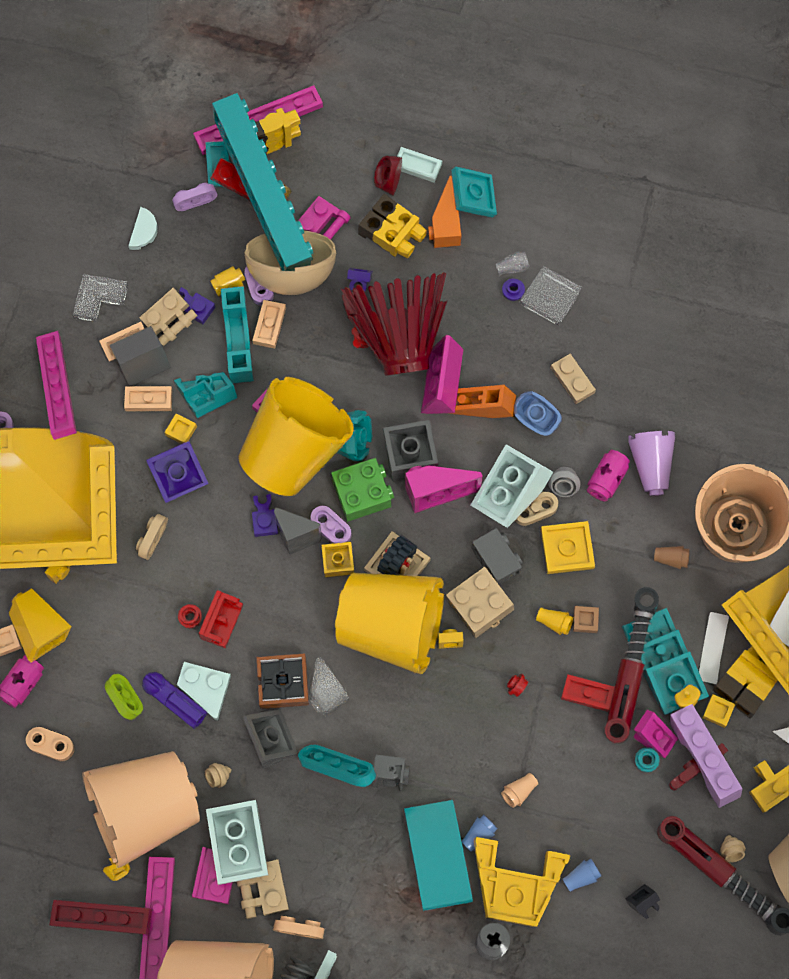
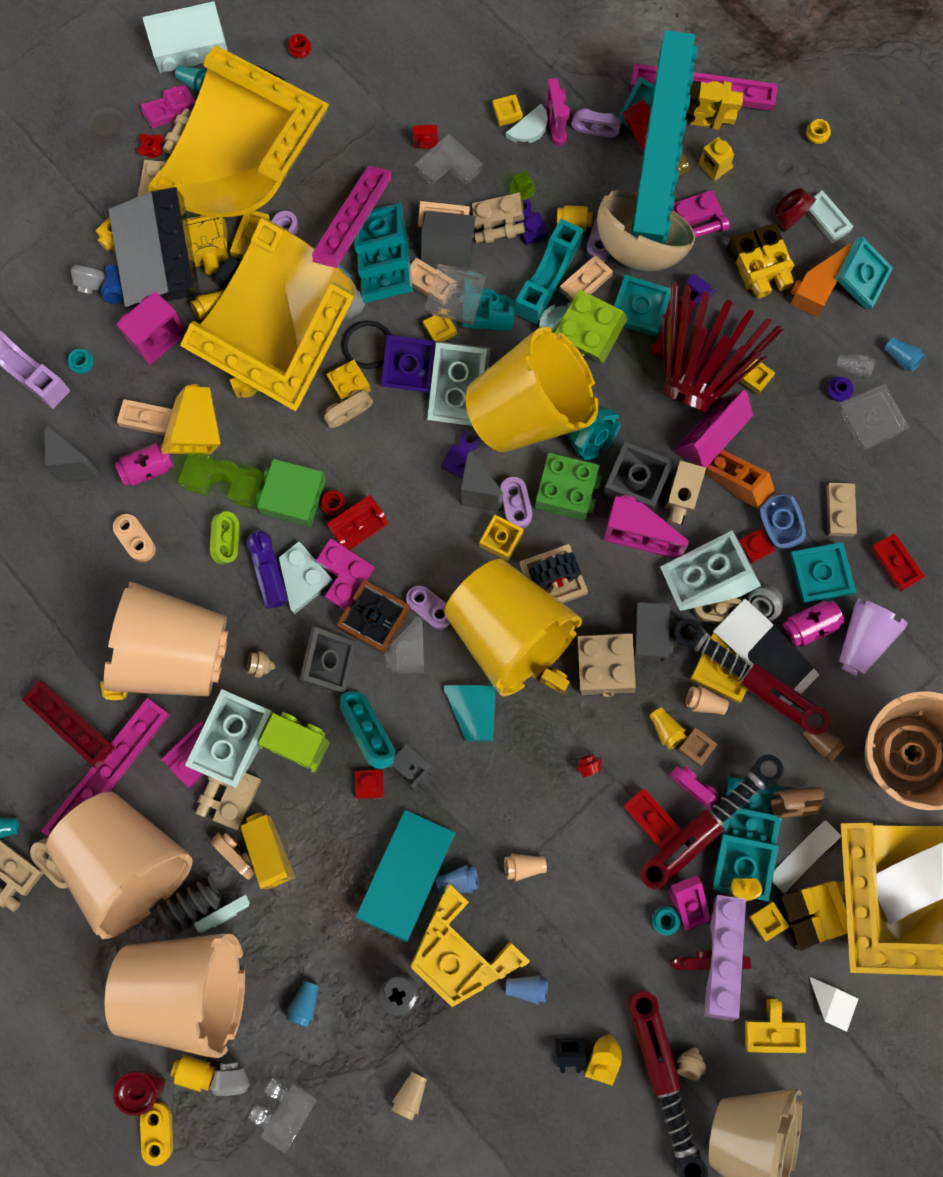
camera: 35 degrees right, 5 degrees up
(67, 287) = (425, 136): none -> red plate
(71, 657) = (202, 473): none -> clear neon green arch
(99, 399) = (384, 254): none -> teal slope
(117, 227) = (507, 110): none -> yellow plate
(136, 515) = (347, 380): none -> yellow piece
(144, 493) = (348, 334): none -> black piece
(152, 629) = (291, 493): none -> bright green brick
(161, 209) = (557, 111): none -> dark pink plate
(169, 280) = (522, 184): none -> clear neon green hose
(176, 396) = (455, 294): none -> clear plate
(219, 459) = (453, 371): none -> light aqua slope
(239, 658) = (349, 570): none -> dark pink plate
(266, 366) = (553, 316): none -> light aqua tile
(288, 812) = (294, 742): none -> lime brick
(298, 356) = (592, 325): none -> lime brick
(308, 166) = (720, 154): none -> yellow brick
(318, 647) = (428, 607): none -> lavender plate
(322, 907) = (266, 851): none -> yellow slope
(324, 317) = (642, 304): none -> teal plate
(364, 808) = (369, 784): none -> red plate
(368, 98) = (820, 126): none -> yellow plate
(405, 700) = (473, 710): none -> teal slope
(449, 319) = (758, 378): none -> yellow plate
(449, 429) = (685, 482): none -> tan torso
(530, 444) = (756, 546): none -> red plate
(543, 234) = (905, 354): none -> dark azure cone
(569, 582) = (705, 701): none -> light nougat cone
(589, 517) = (762, 643): none -> sticker
(590, 434) = (822, 573): none -> teal plate
(593, 648) = (687, 780): none -> dark pink plate
(594, 542) = (755, 679): none -> piece
(638, 392) = (897, 562): none -> red plate
(671, 888) = (604, 1060): none -> yellow plate
(682, 611) = (797, 802): none -> medium nougat arm

